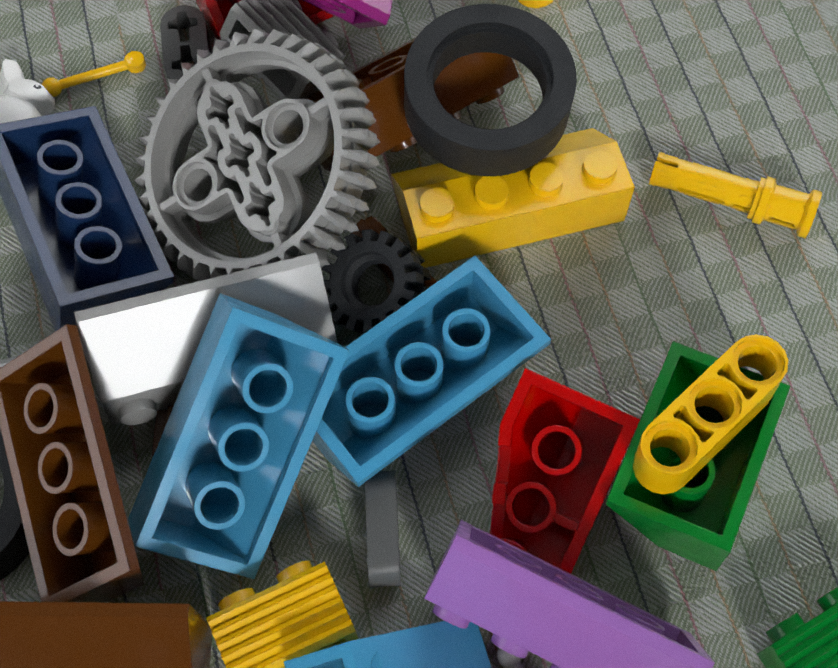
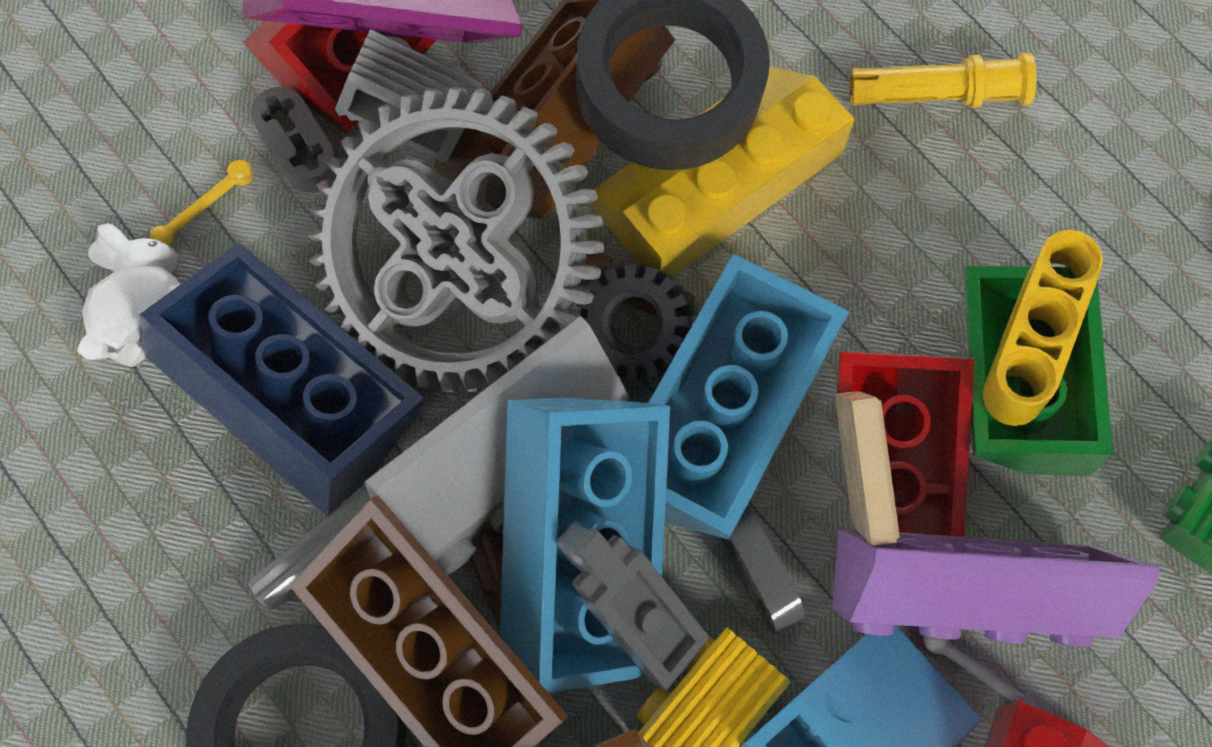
camera: 25 degrees left, 5 degrees up
(246, 505) = (633, 604): none -> dark grey hinge
(493, 468) = (867, 467): none -> tan tile

